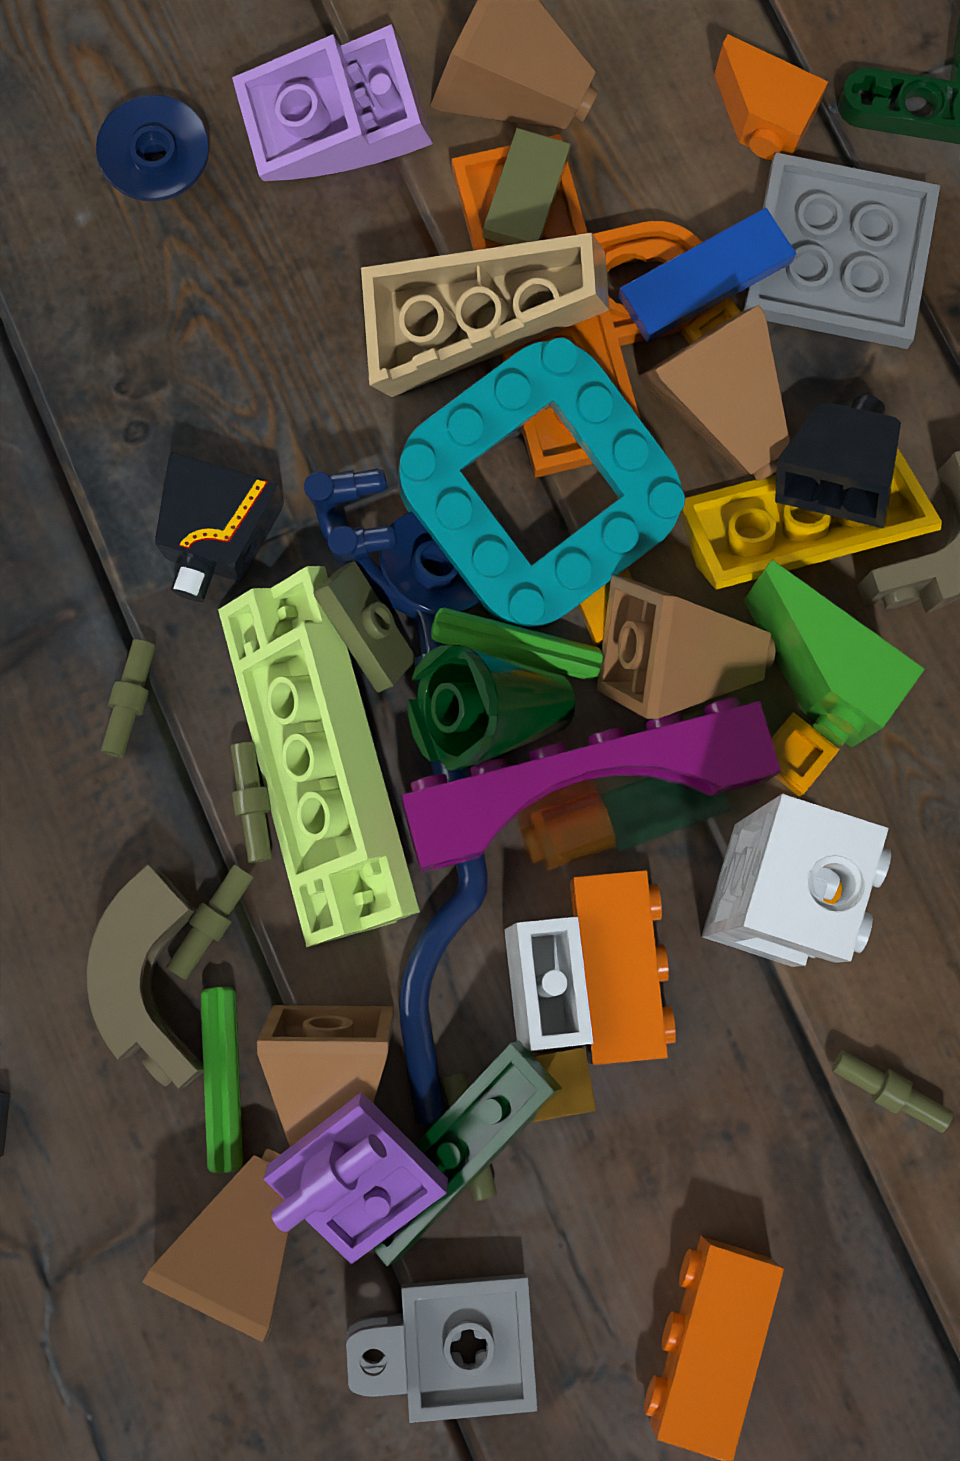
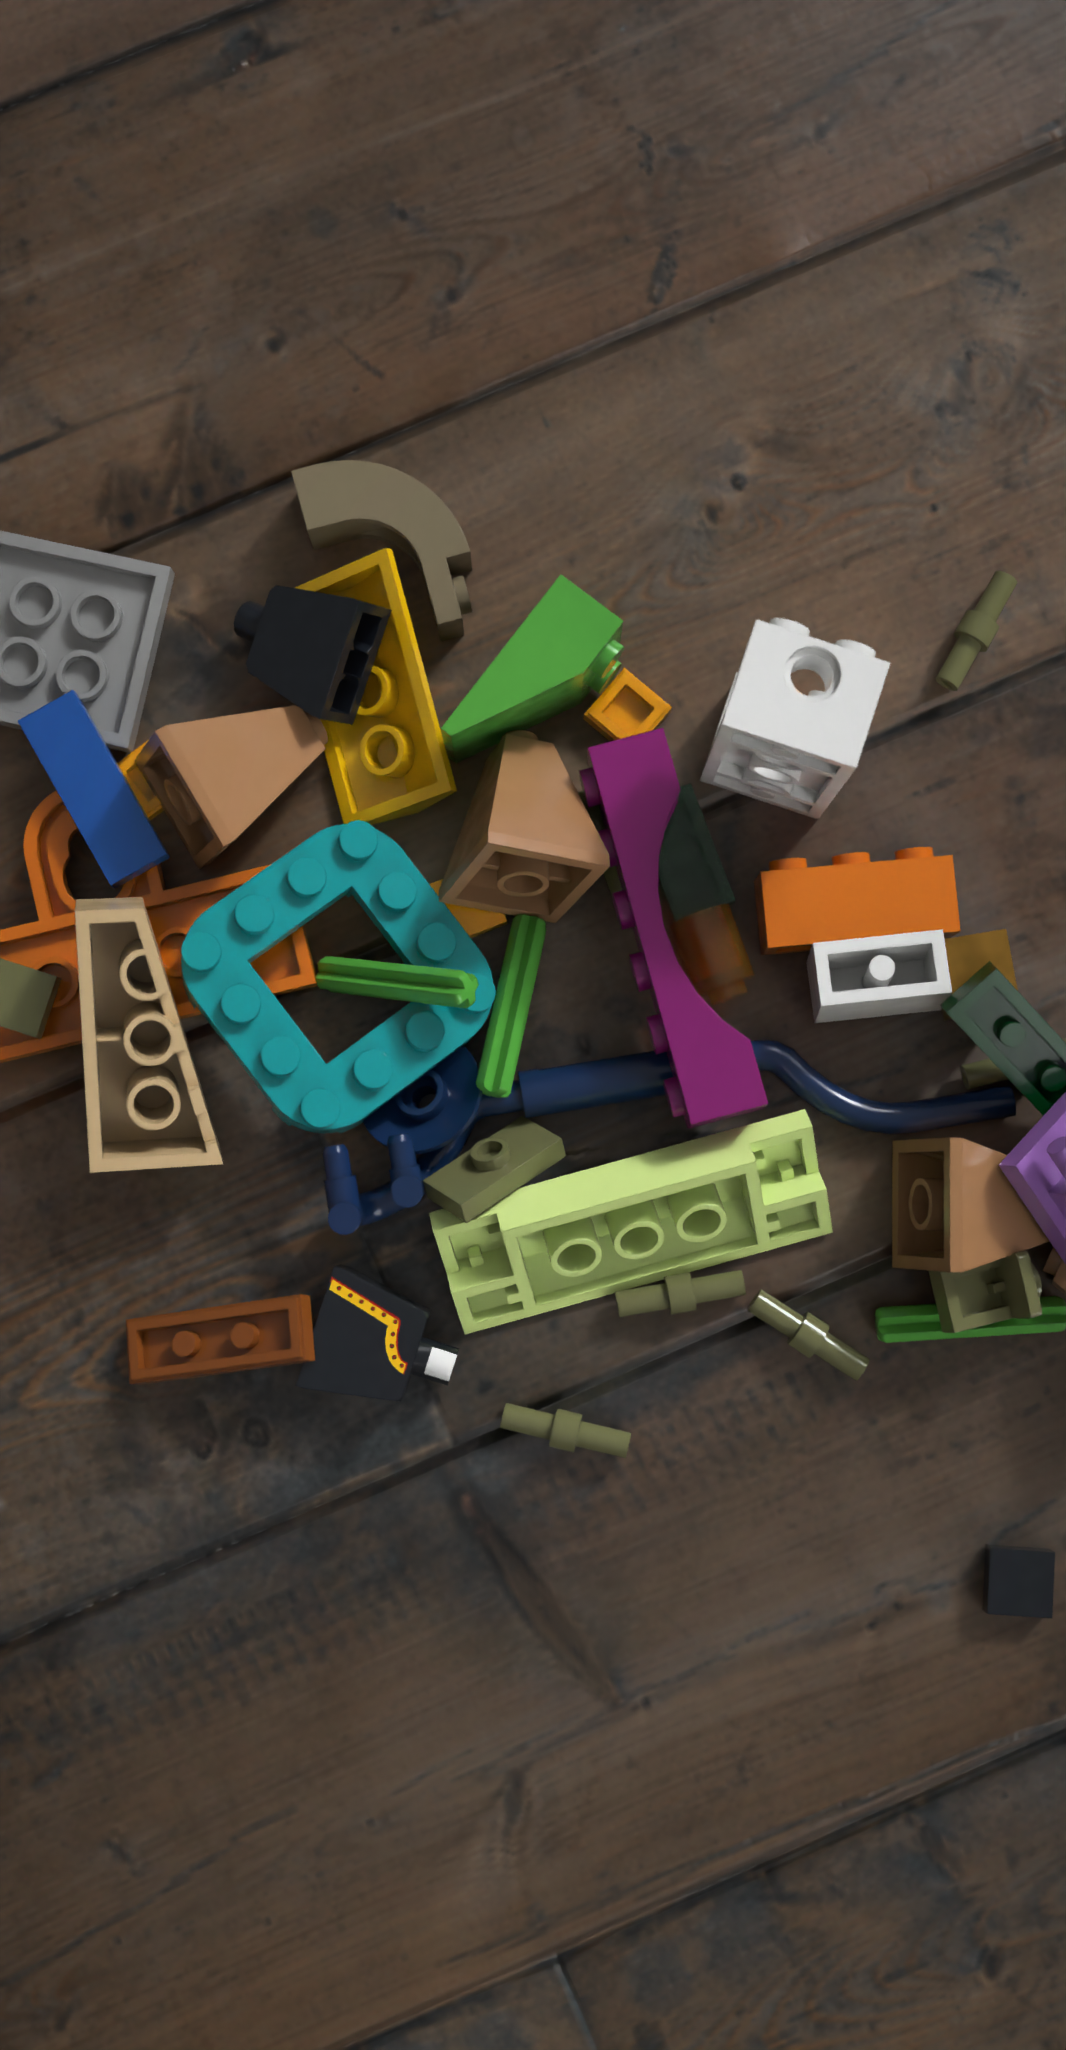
camera: 85 degrees left, 5 degrees up
(121, 974) = (870, 1426): dark tan arch -> none
(215, 392) = (220, 1339): none -> dark orange tile
(240, 1089) = (987, 1293): none -> olive bracket
(483, 705) = (590, 1039): dark green cone -> none
(536, 536) = (397, 981): none -> bright green axle

